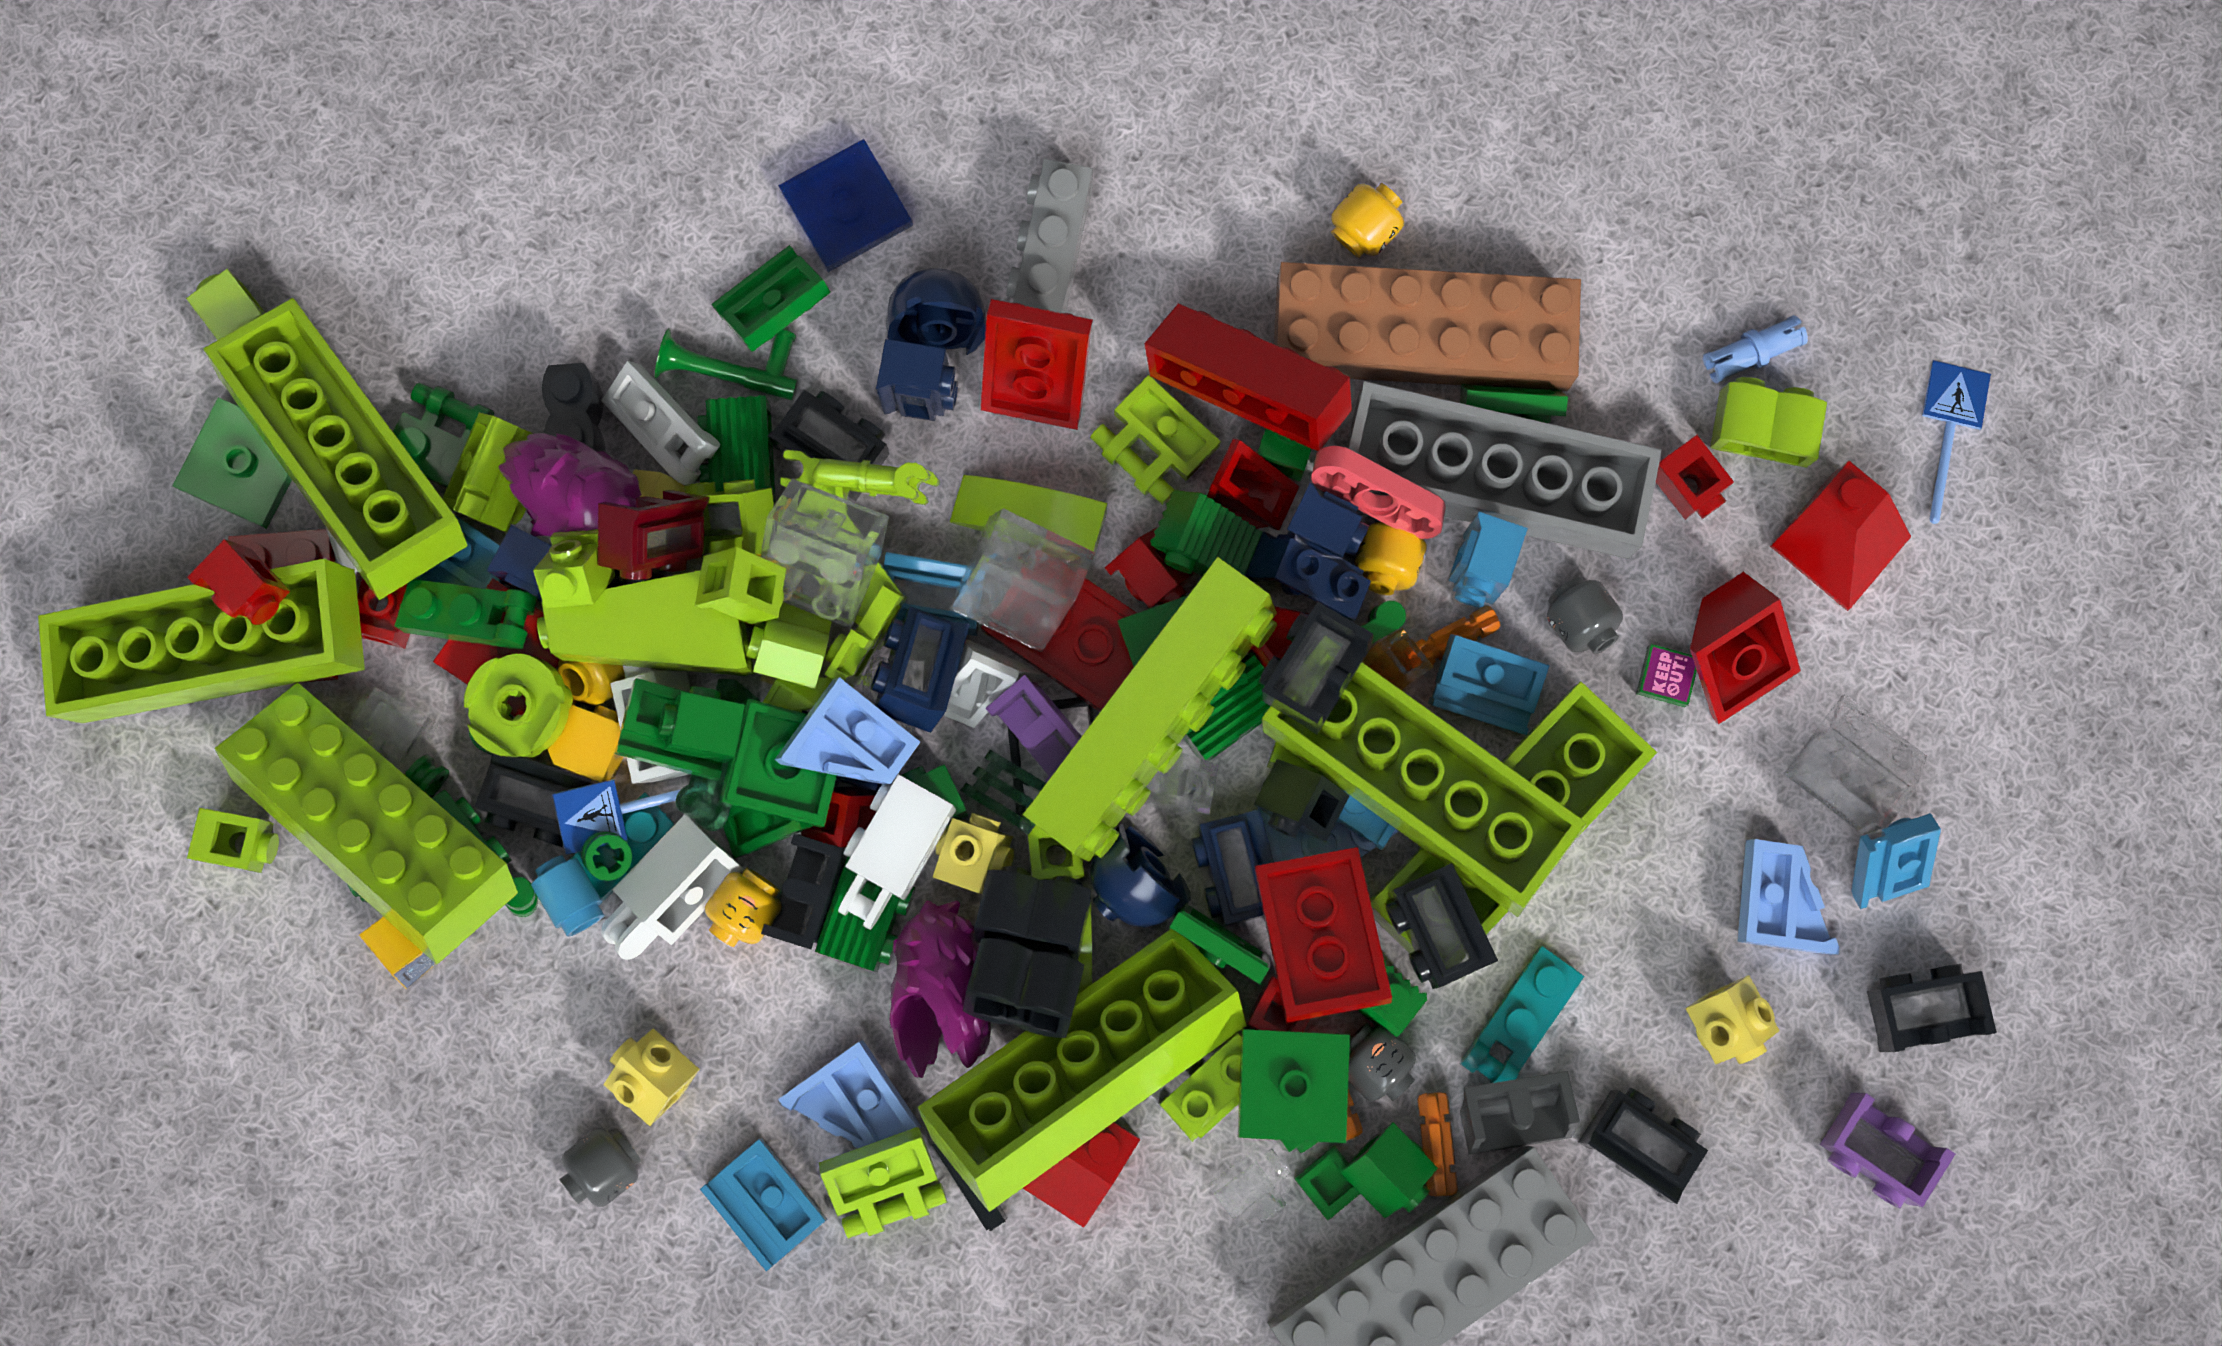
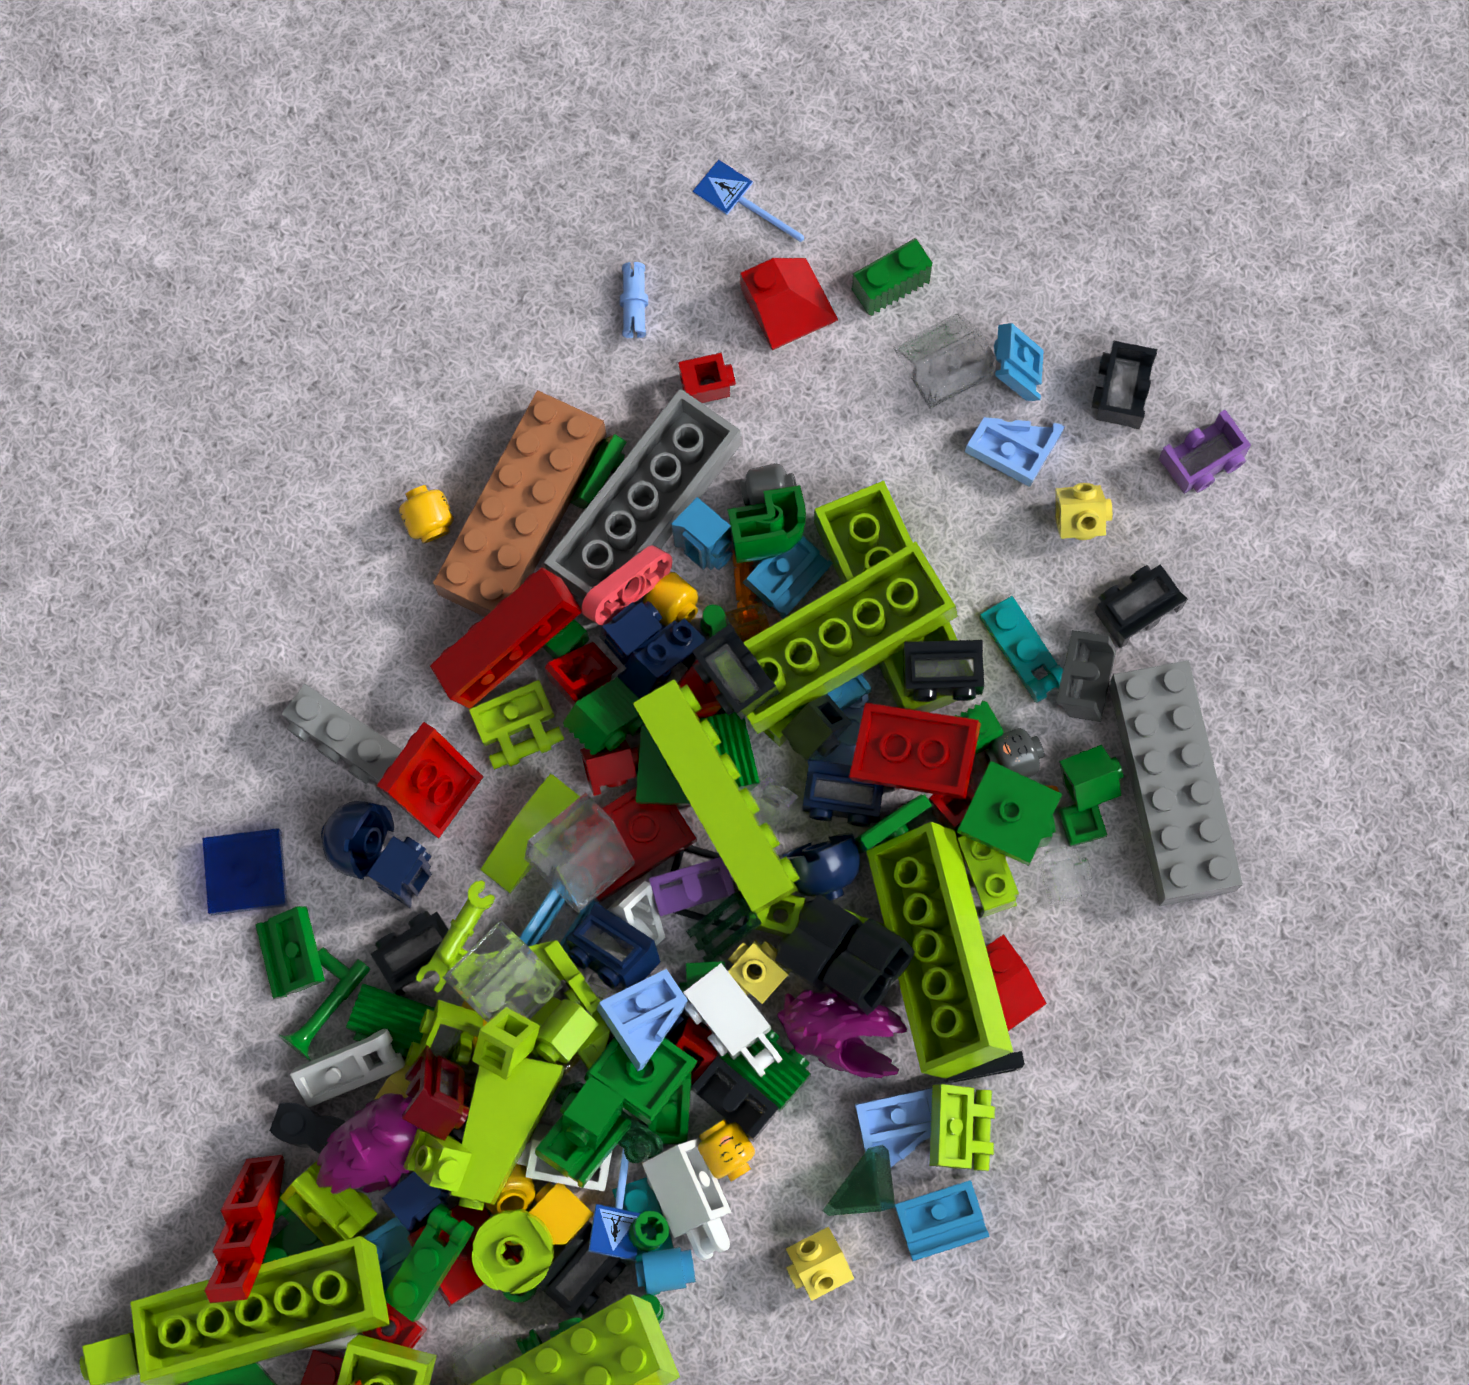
camera: 60 degrees left, 5 degrees down
(436, 389) = (248, 1227): none -> red slope
(599, 1167) = (868, 1328): dark grey head -> none
(760, 1097) = (866, 1187): none -> clear green slope
(1438, 1142) = (1083, 739): orange axle -> none
(1530, 632) = (768, 527): none -> green brick
(1667, 676) = (831, 454): tile -> none
(1741, 646) = (832, 396): red slope -> none
(1768, 422) = (689, 313): lime brick -> none
(1936, 653) = (892, 276): none -> green brick

